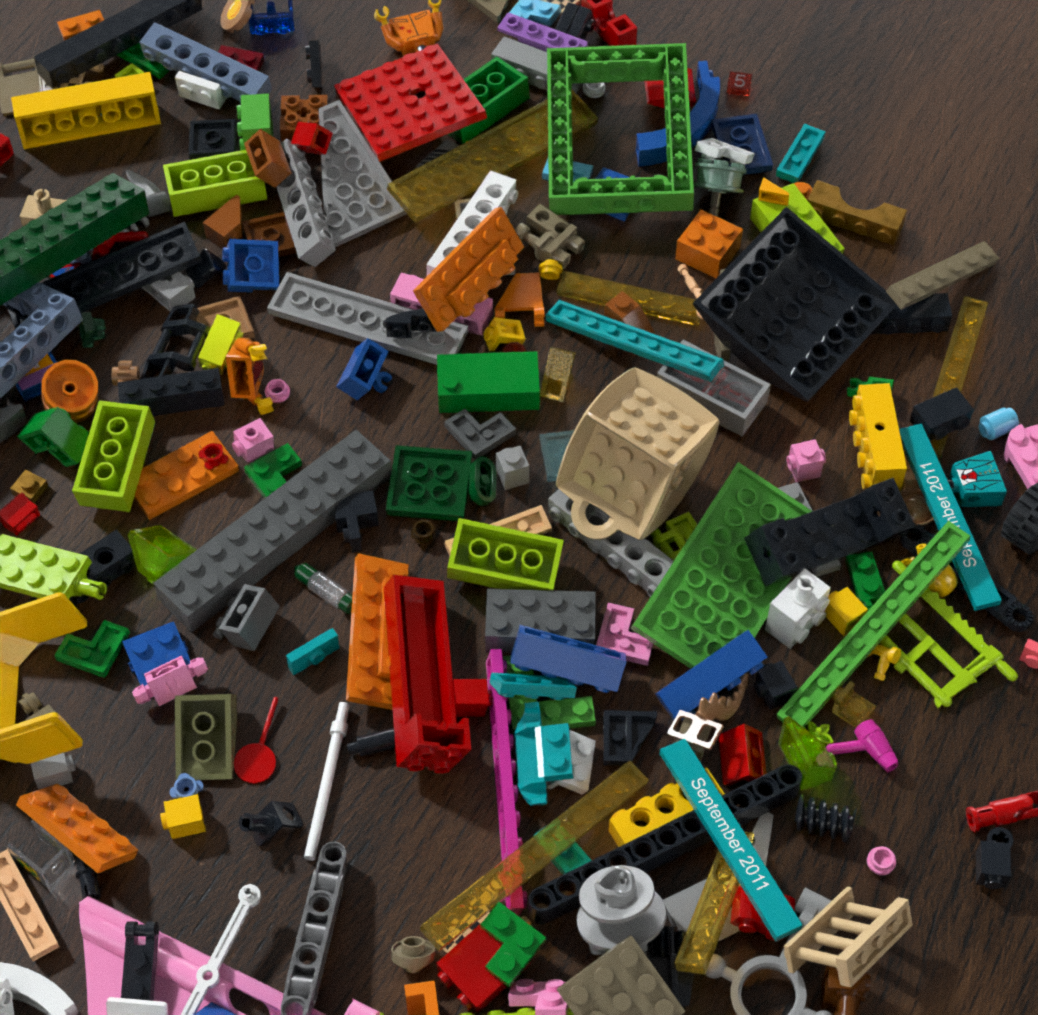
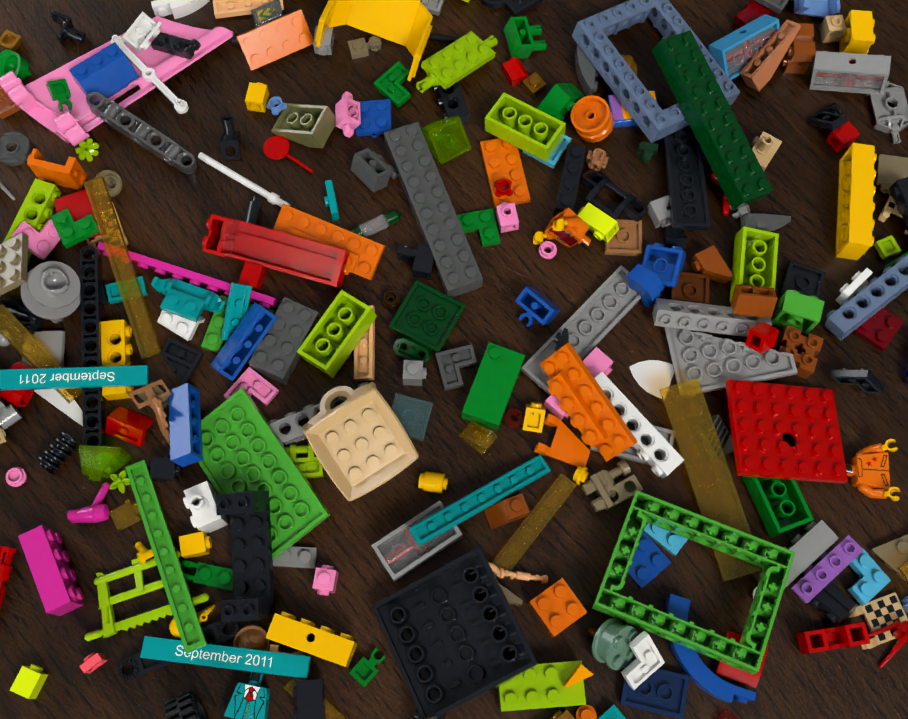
camera: 110 degrees right, 15 degrees up
(286, 269) = (645, 283): none -> blue brick
(393, 245) = (653, 375): none -> white sticker
(967, 741) = (51, 570): none -> dark pink brick

